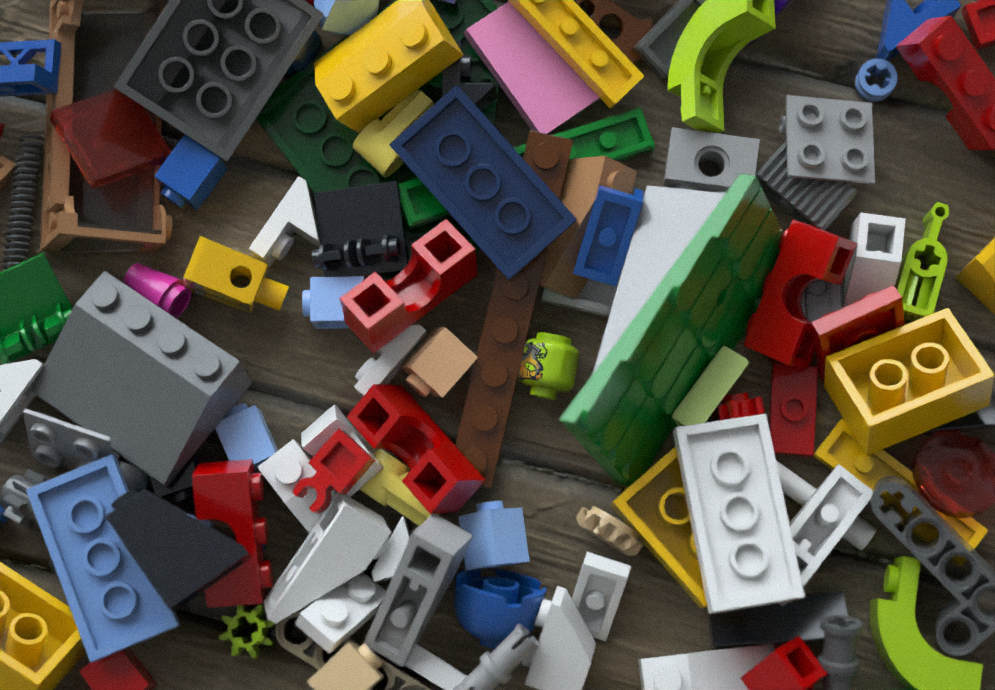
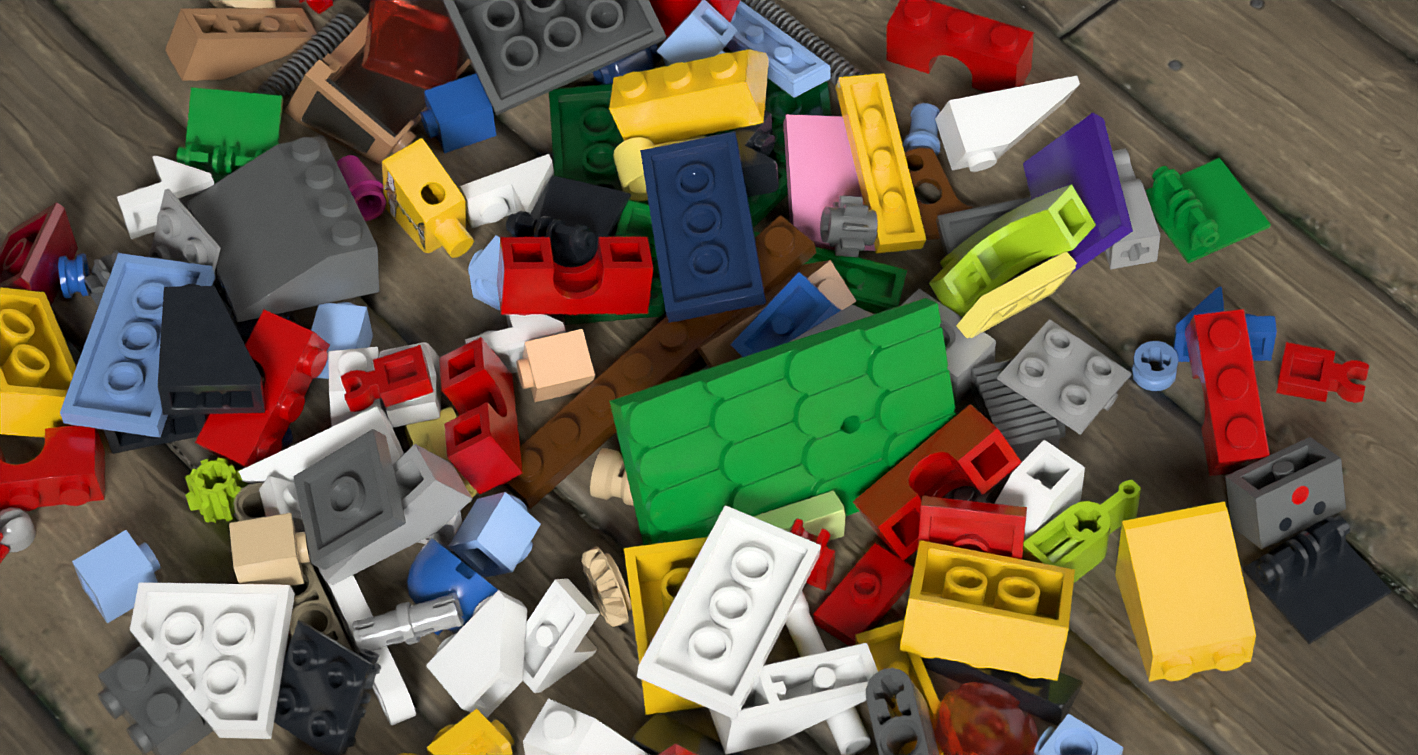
camera: 30 degrees right, 25 degrees down
(387, 604) = (349, 499): none -> dark grey plate
(541, 429) = (610, 477): none -> tan wheel
(583, 103) = (848, 226): none -> dark grey gear
(751, 92) = (1016, 295): none -> light yellow tile

